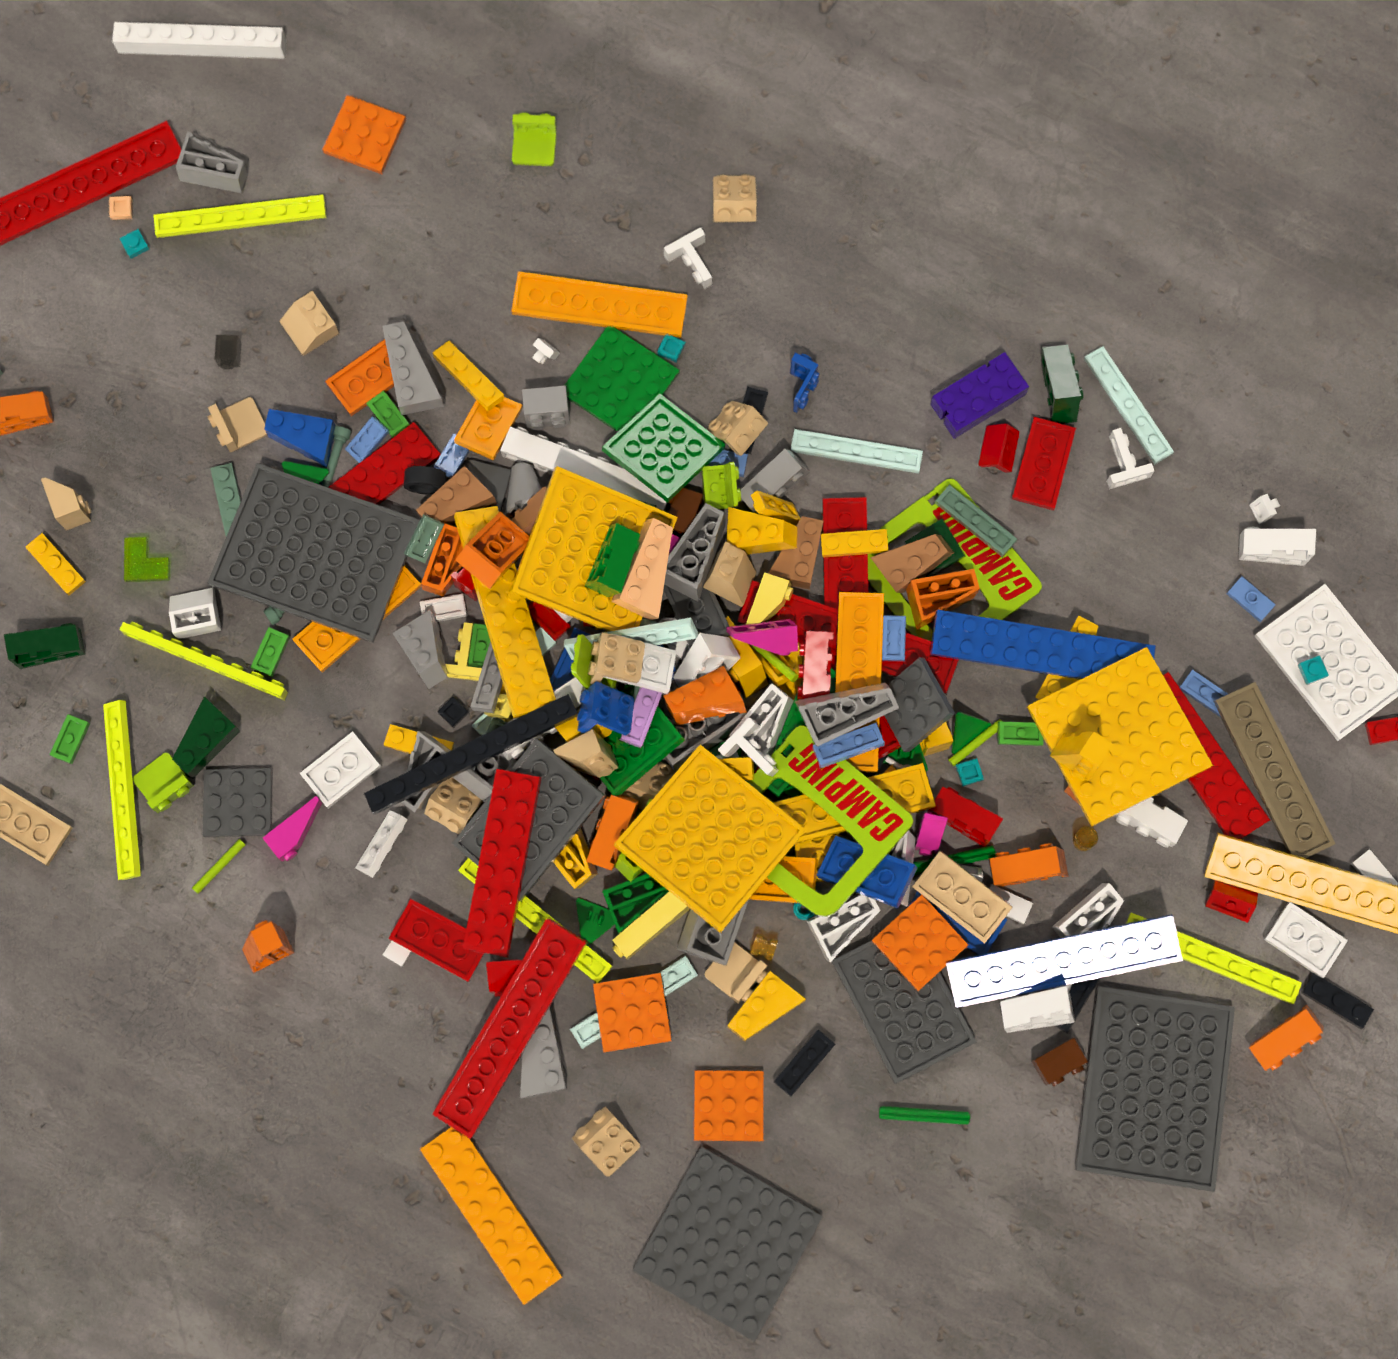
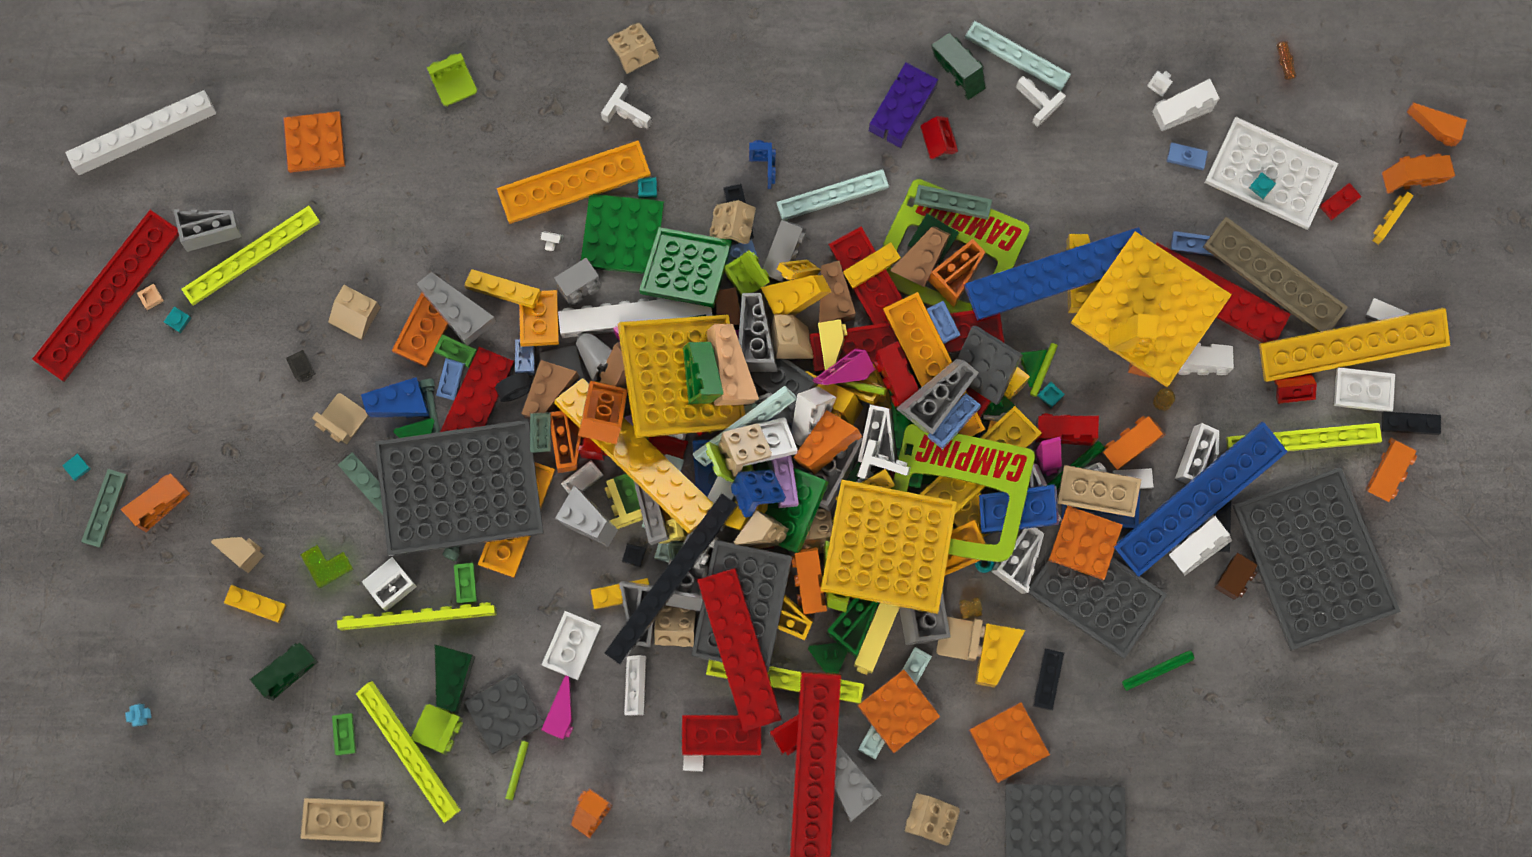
camera: 30 degrees left, 0 degrees up
(1019, 734) = (1073, 346): bright green plate -> none
(1043, 463) = (979, 132): red plate -> none

